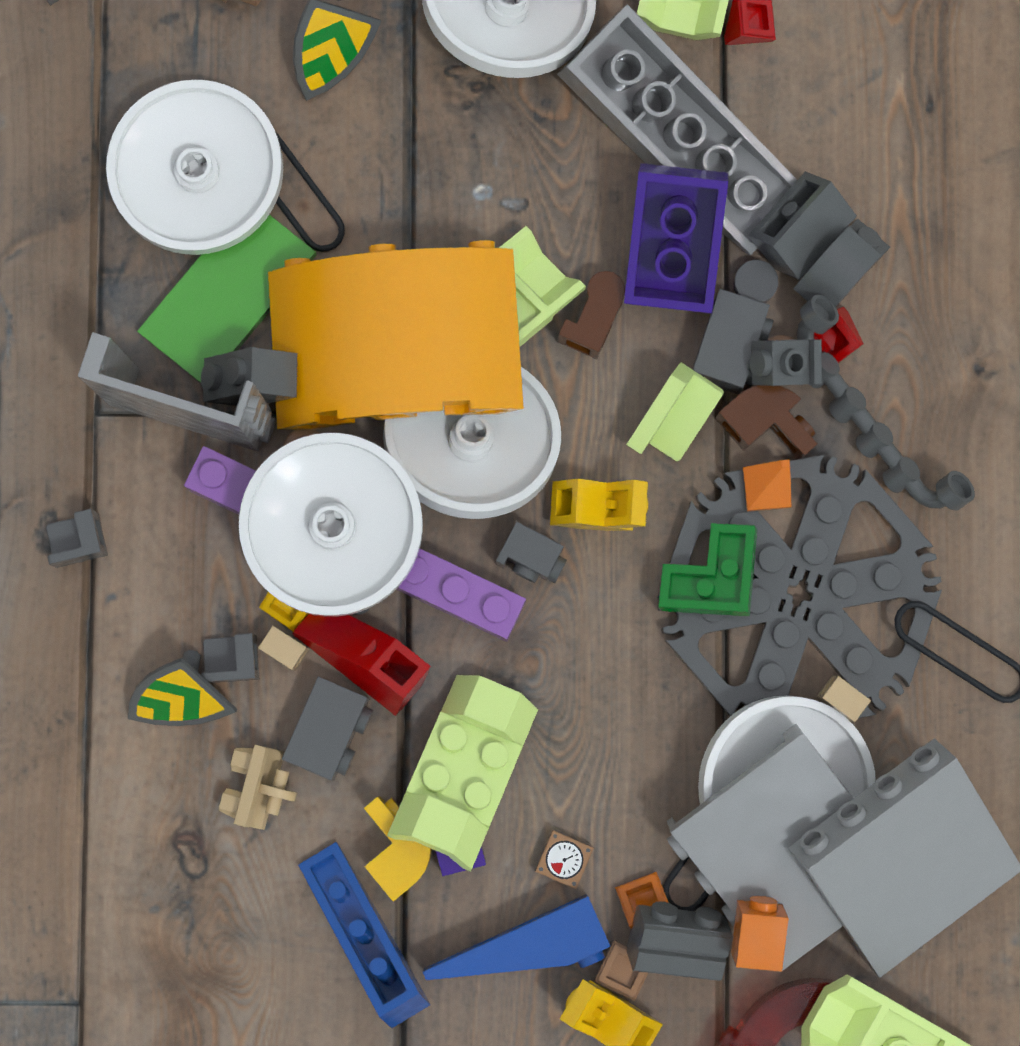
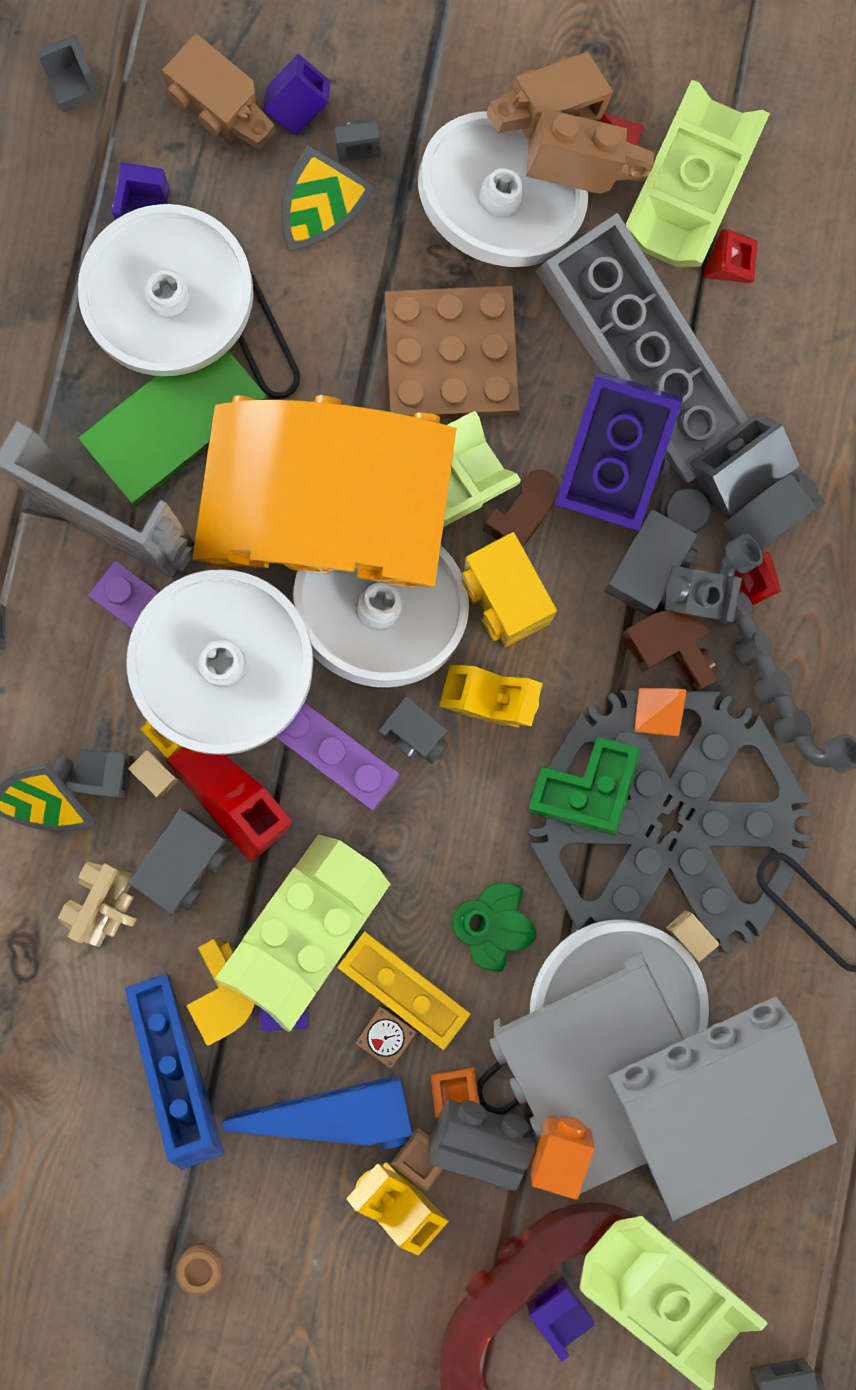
camera: 10 degrees right, 0 degrees up
(146, 71) = (138, 188): none -> dark purple panel
(270, 370) = (190, 499): dark grey brick -> none
(490, 171) = (452, 351): none -> medium nougat plate
(573, 810) = (404, 990): none -> yellow plate
(594, 398) = (507, 590): none -> yellow brick
(654, 729) = (500, 927): none -> green plate
(677, 413) = (585, 622): yellowish green panel -> none

